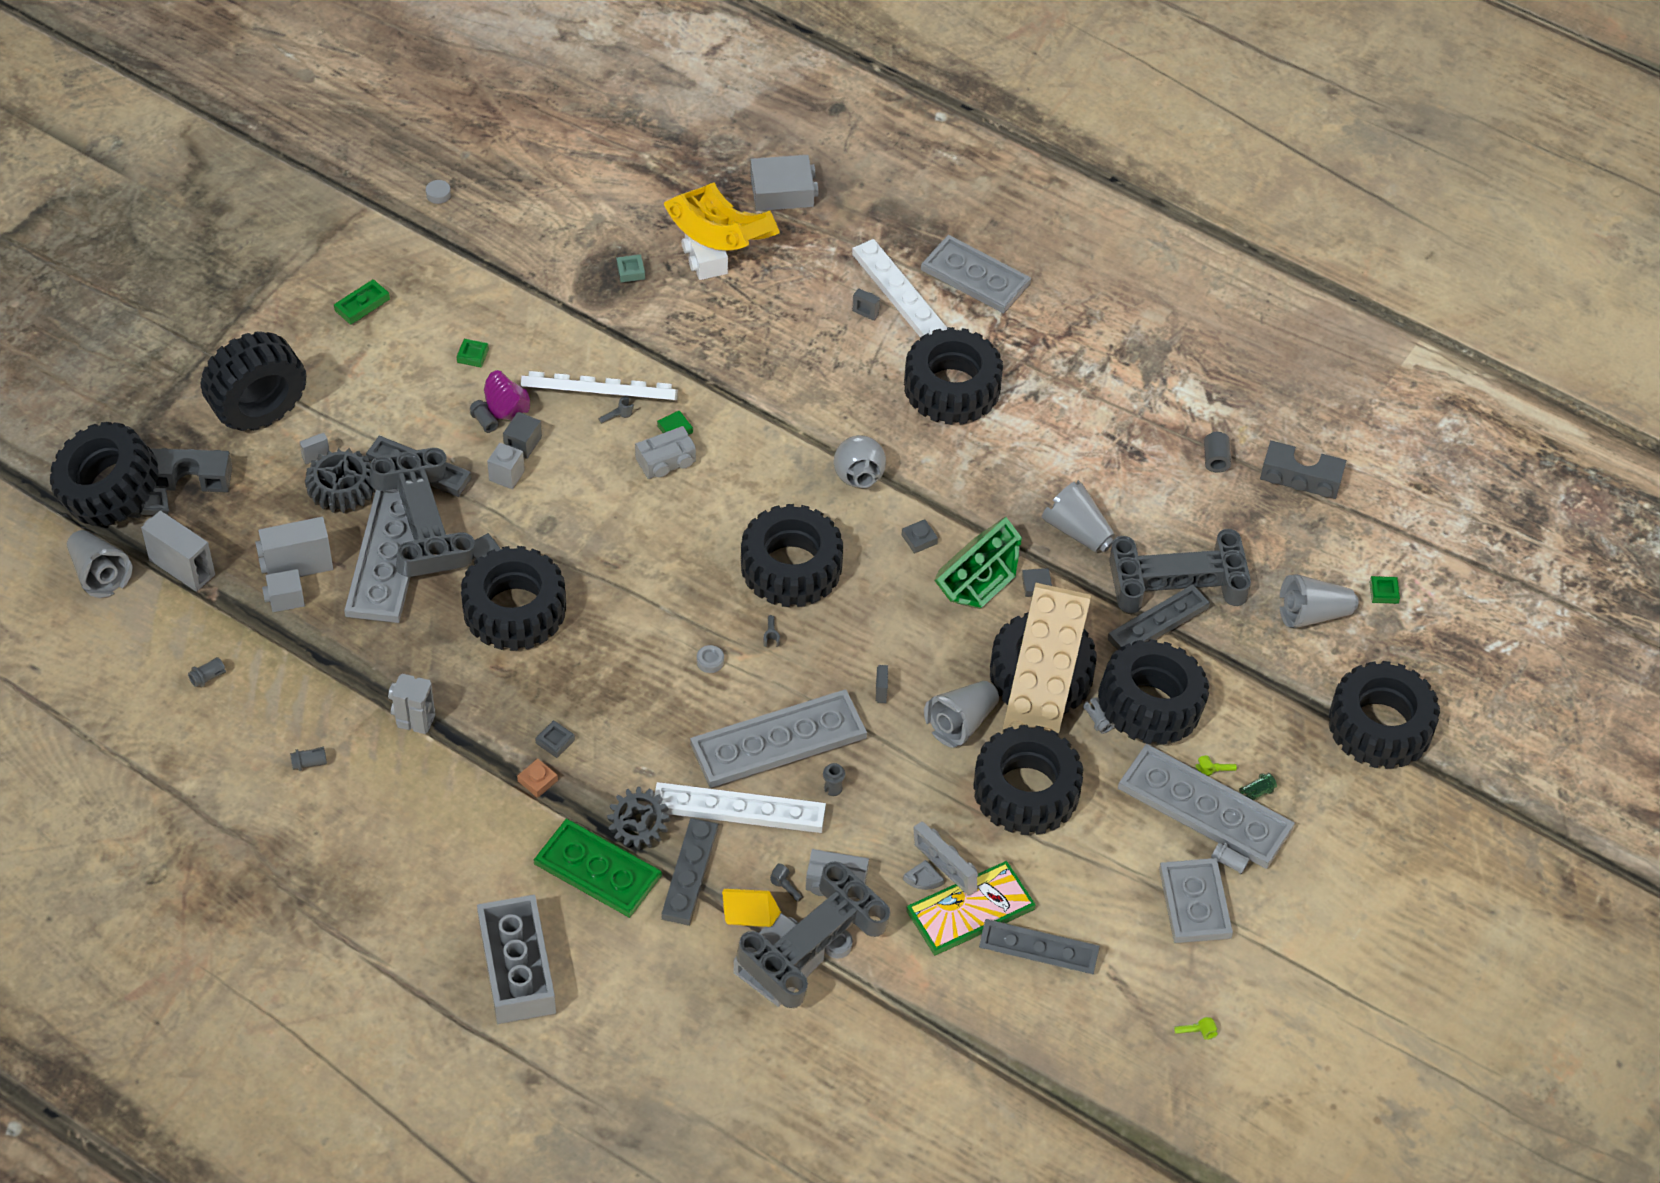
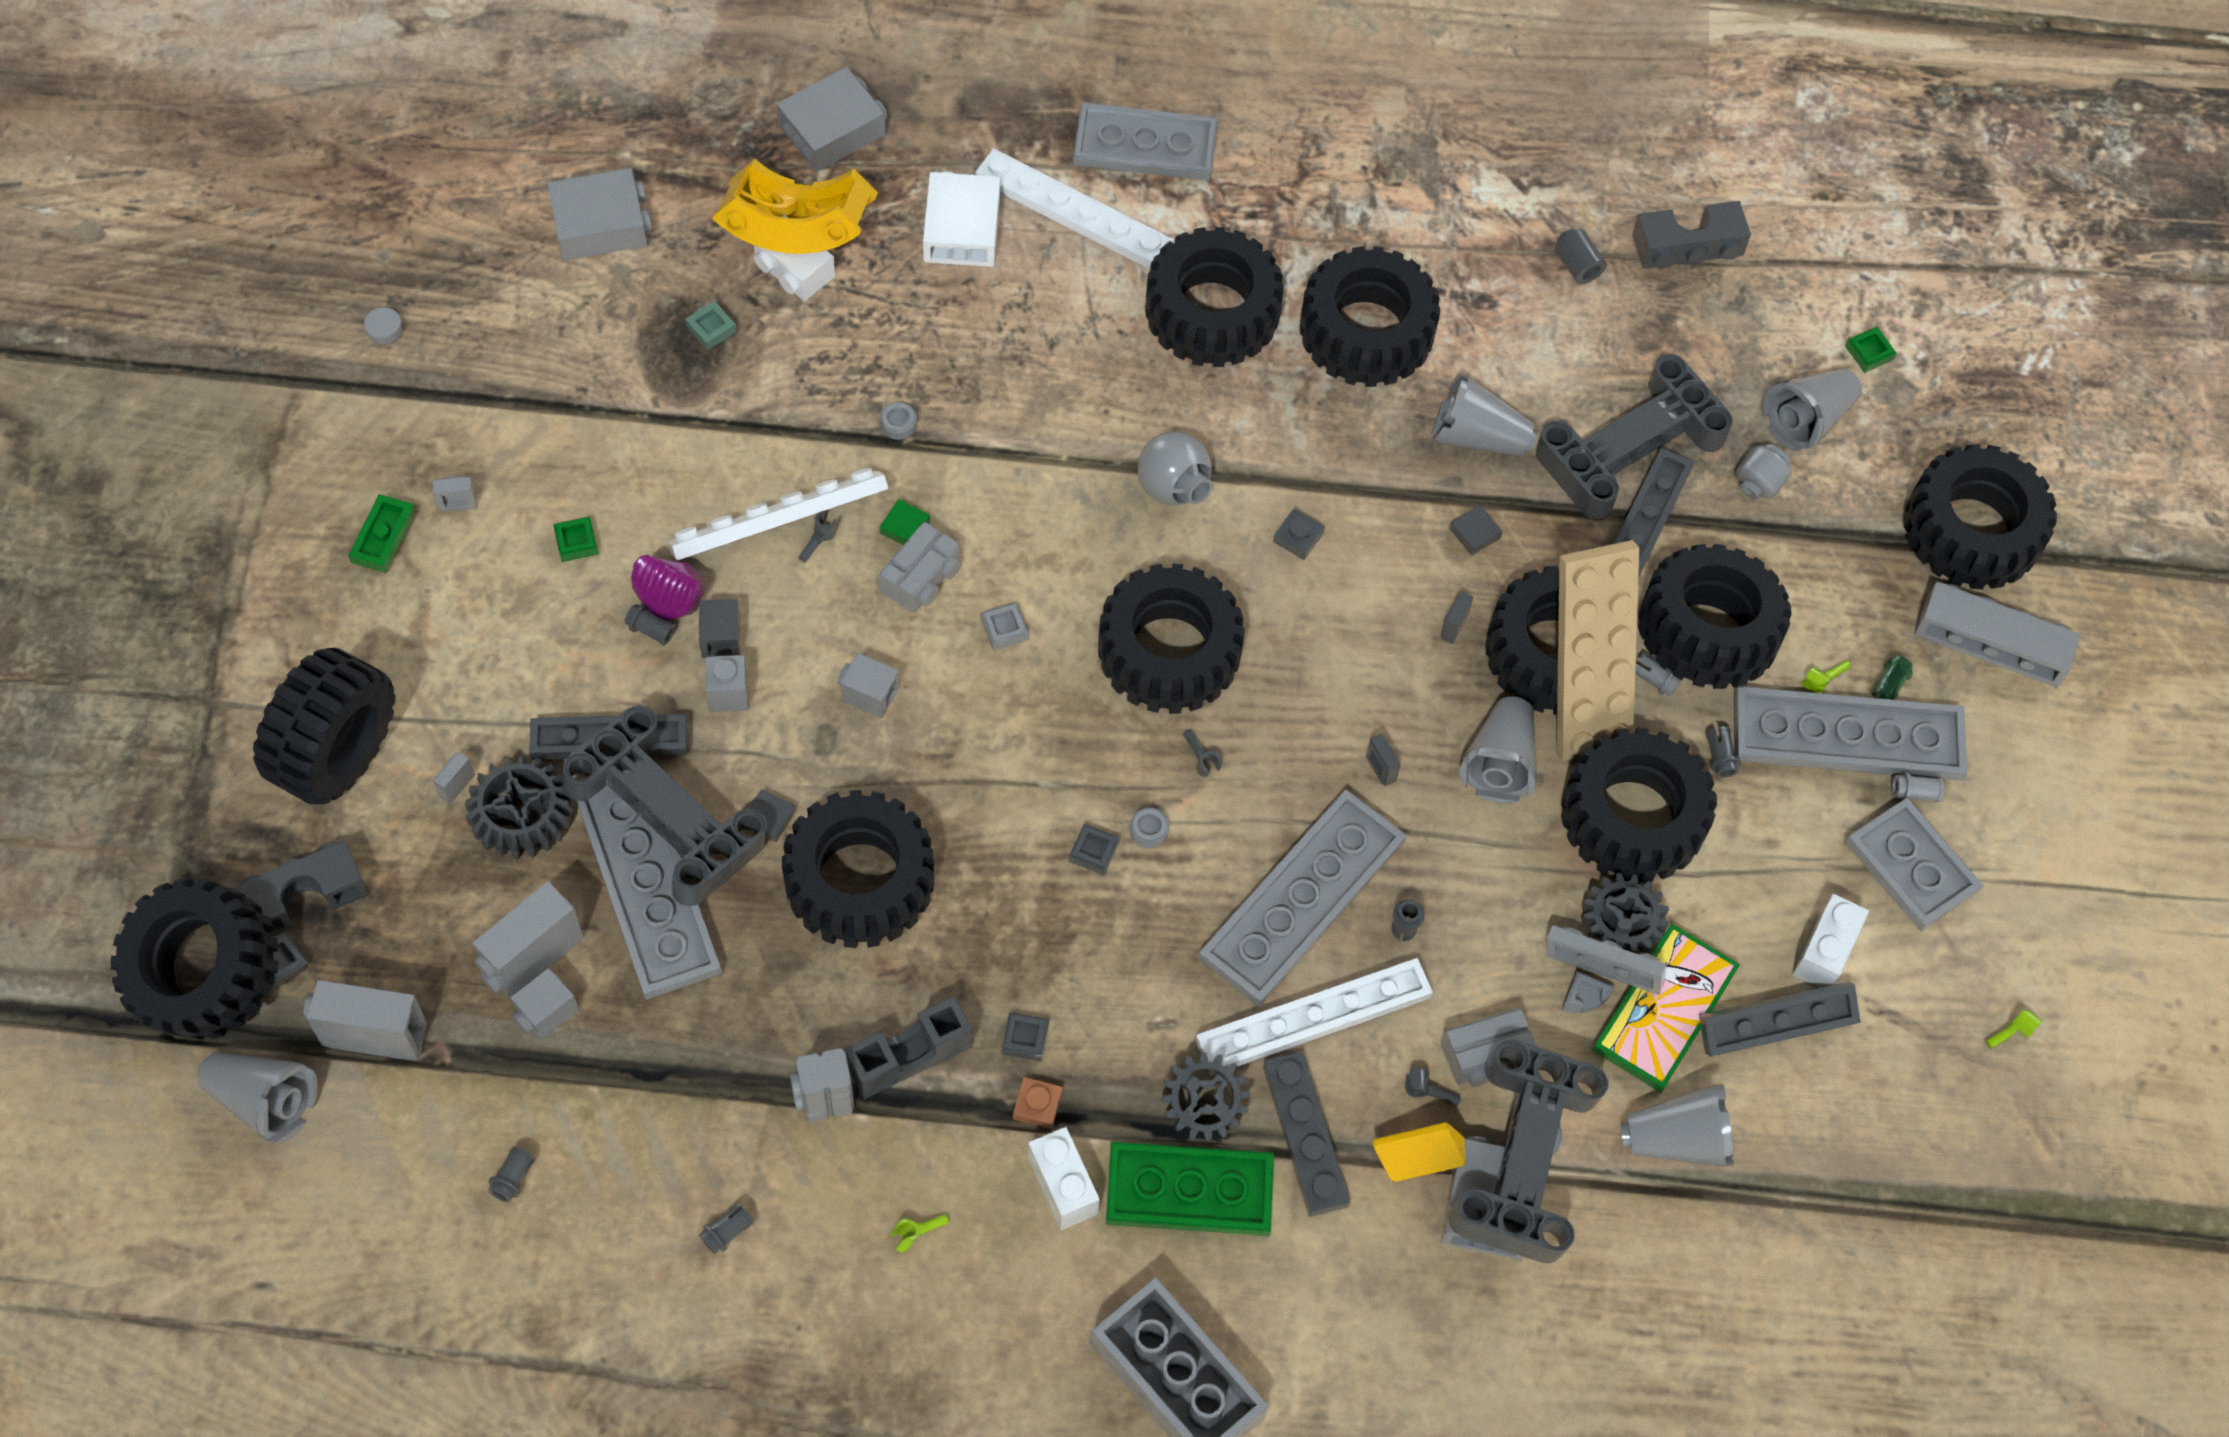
camera: 30 degrees left, 10 degrees up
(411, 808) = (911, 1230): none -> lime hand
(416, 297) = (454, 493): none -> light grey plate
(458, 711) = (935, 1037): none -> dark grey arch
(521, 822) = (1063, 1178): none -> white brick
(591, 504) = (869, 684): none -> light grey brick
(604, 180) = (599, 213): none -> light grey brick
(668, 656) = (1094, 849): none -> dark grey tile
(697, 509) = (1004, 626): none -> light grey tile
(710, 368) = (898, 420): none -> light grey tile
(825, 270) = (961, 219): none -> white brick
(866, 304) = (1042, 244): dark grey plate -> none
(930, 976) = (1683, 1129): none -> light grey cone
(978, 840) = (1633, 899): none -> dark grey gear
(982, 566) = (1403, 540): green wedge -> none
(987, 624) = (1456, 617): none -> dark grey tile
(1044, 452) = (1376, 279): none -> black tyre
(1104, 917) = (1830, 942): none -> white brick
(1111, 779) = (1723, 755): none -> dark grey pin
(1254, 628) = (1763, 471): none -> light grey head
(1350, 791) = (1997, 634): none -> light grey brick

